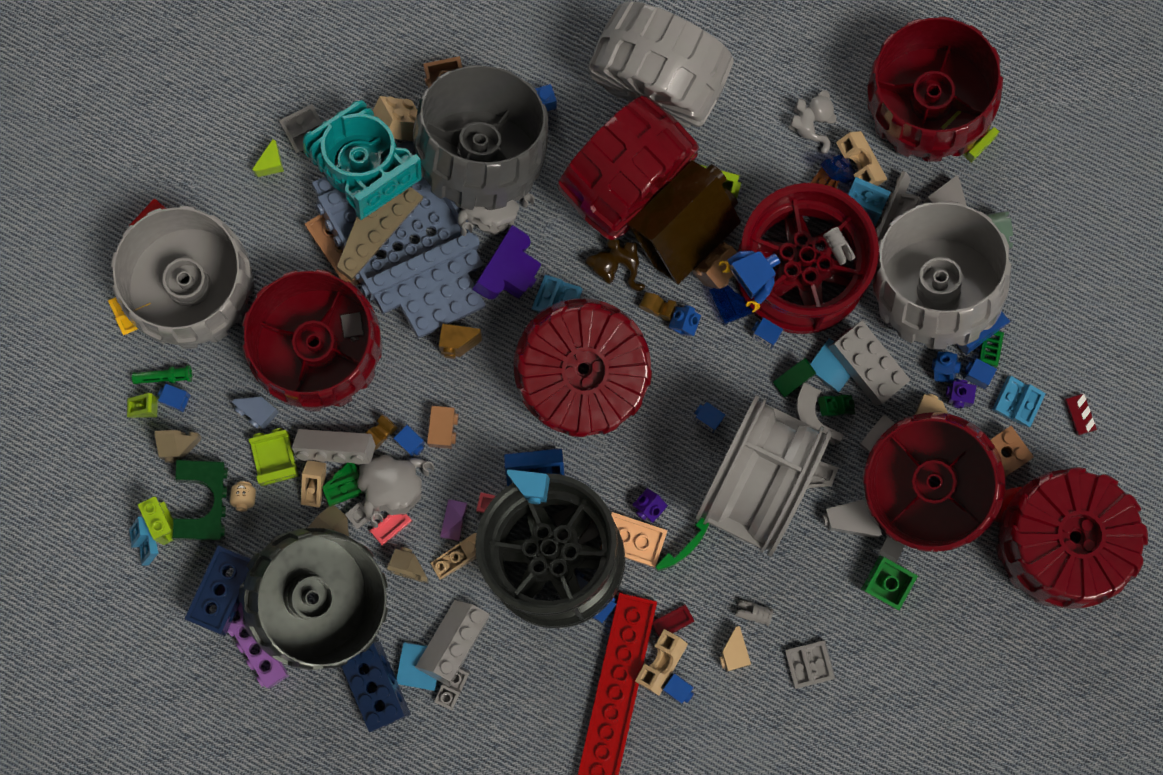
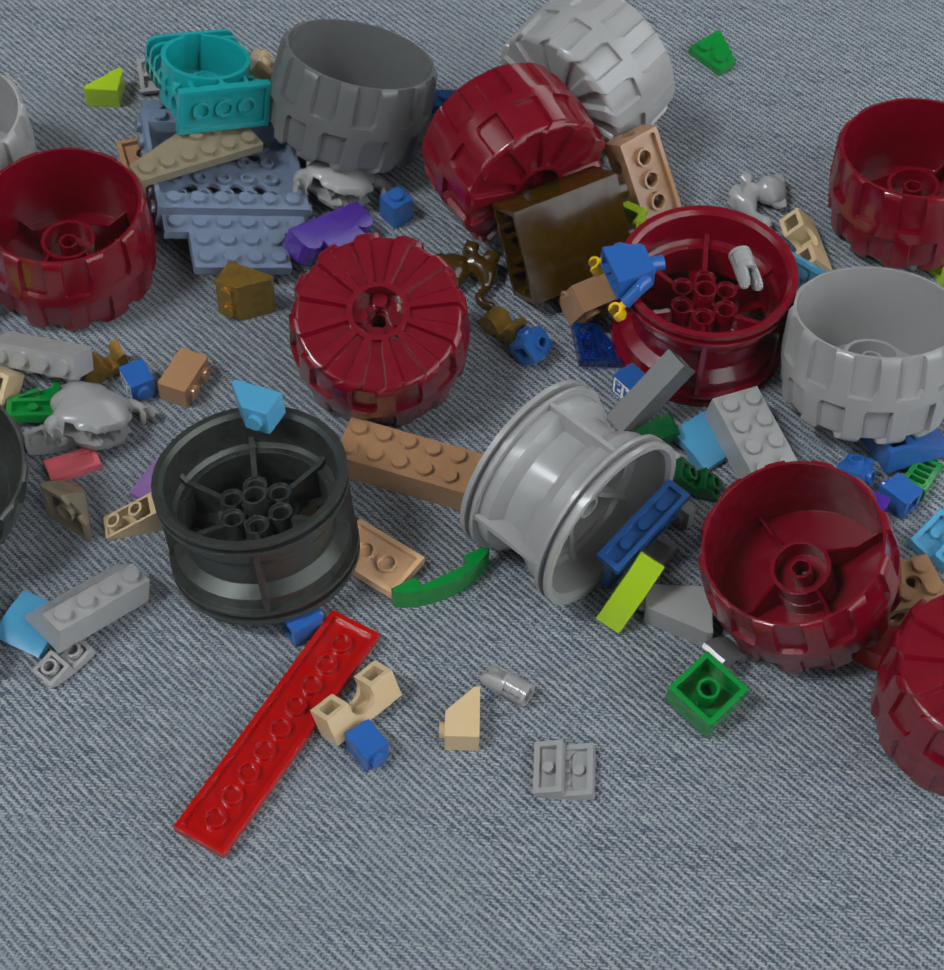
camera: 15 degrees right, 25 degrees down
(541, 215) = (396, 207): none -> blue brick
(637, 455) = (408, 463): none -> medium nougat brick
(649, 505) = (411, 523): dark purple brick -> none
(673, 620) = (403, 664): dark red tile -> none
(727, 142) = (644, 167): none -> medium nougat brick
(787, 348) = (650, 392): none -> dark grey brick
(820, 480) = (641, 531): none -> blue fence
(820, 521) = (630, 592): none -> lime slope

